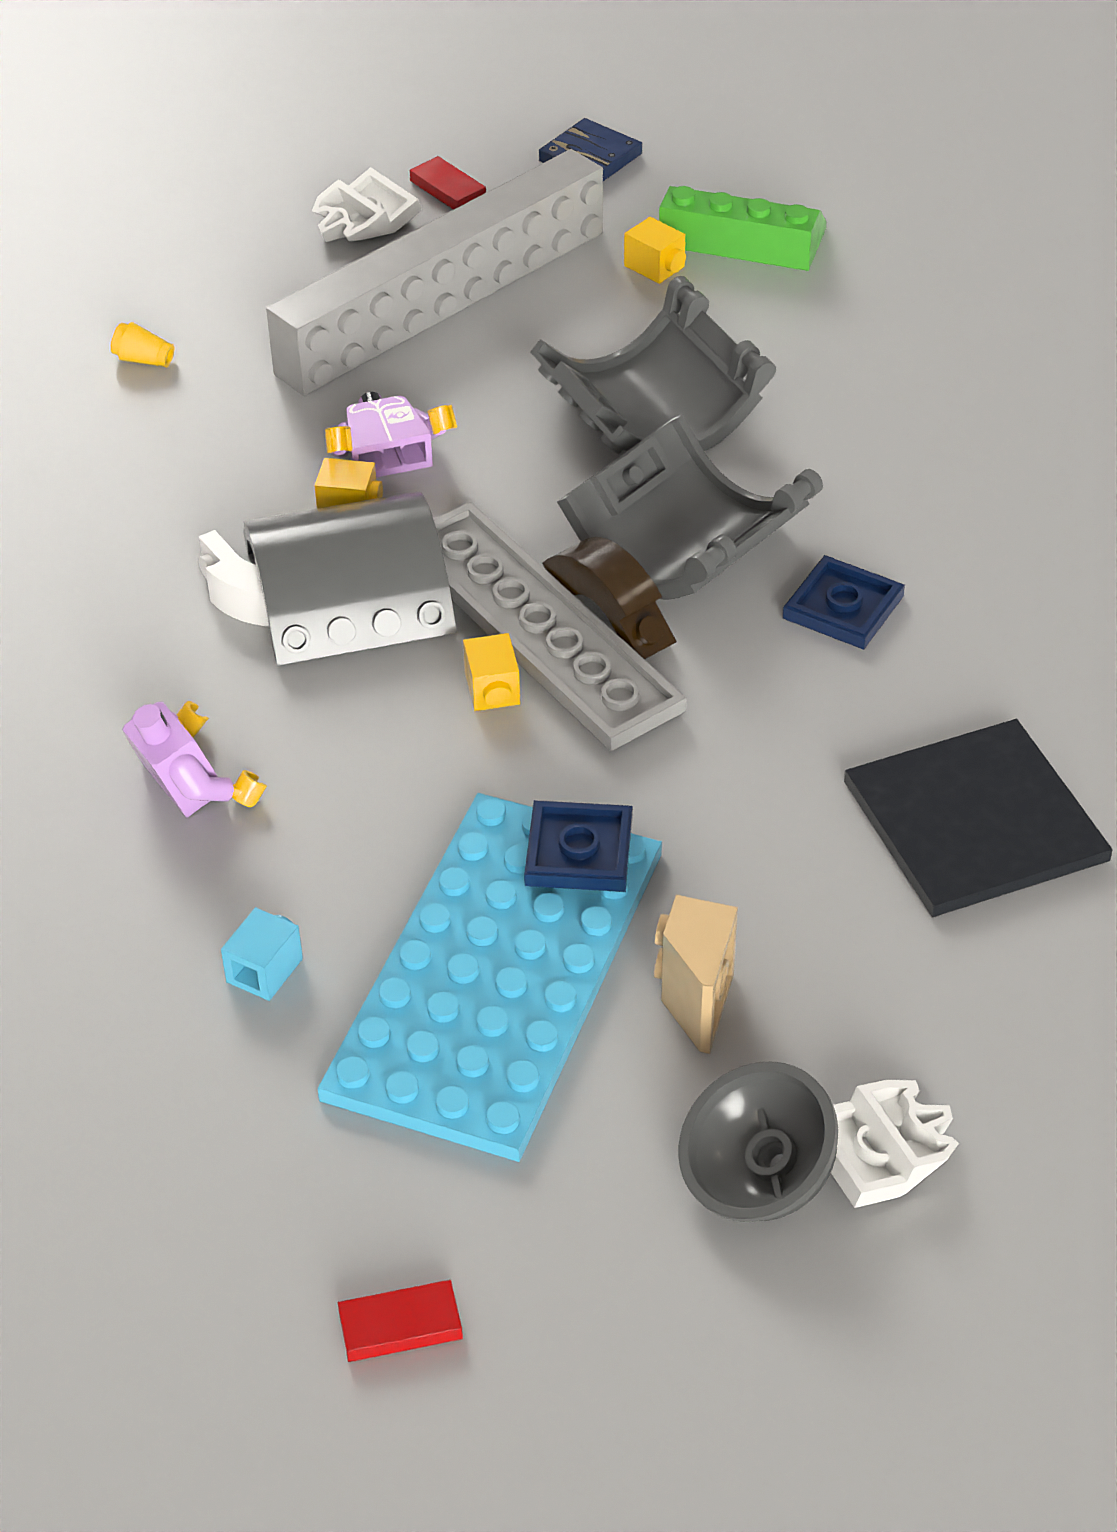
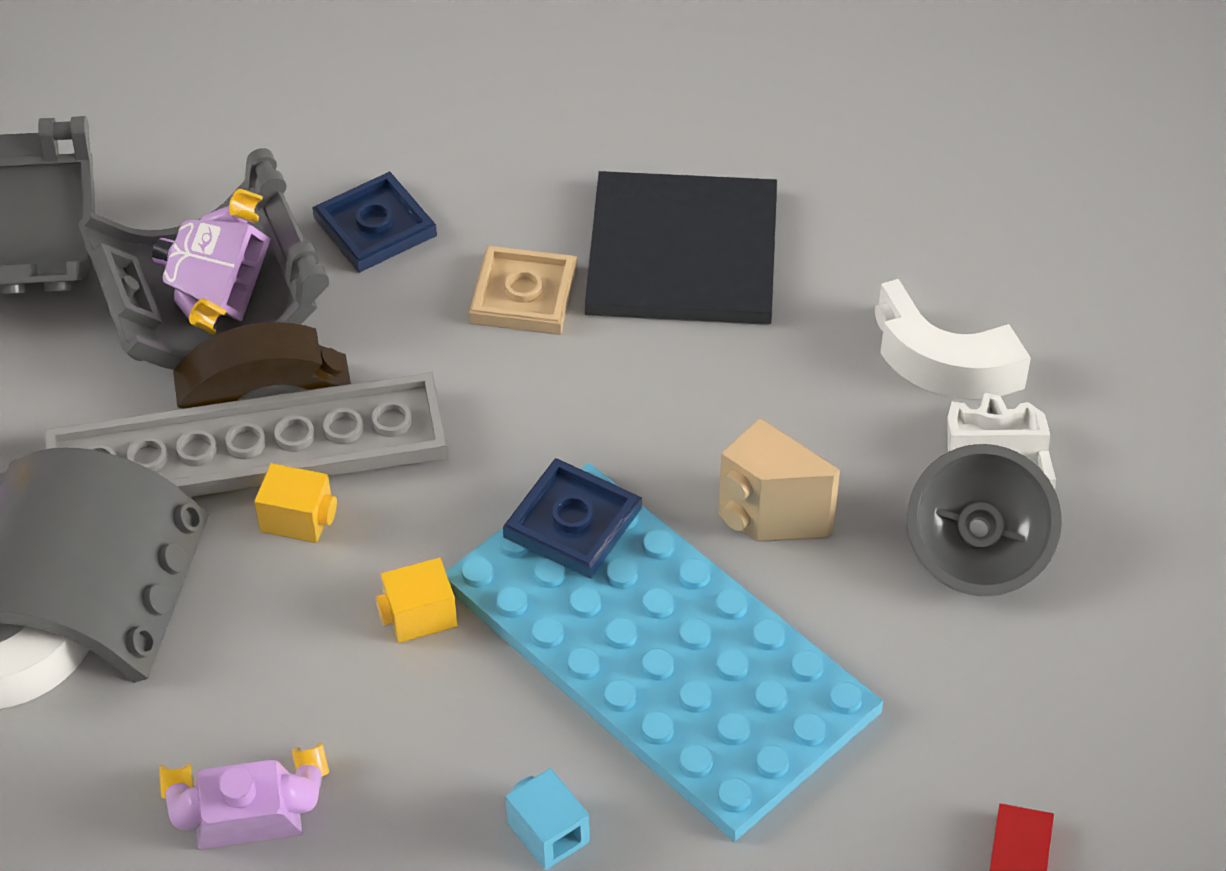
camera: 65 degrees left, 5 degrees up
(438, 786) = (417, 600): none -> yellow brick
(688, 514) = (215, 261): none -> lavender torso
(838, 727) = (523, 290): none -> tan tile
(973, 1078) = (947, 361): none -> white arch

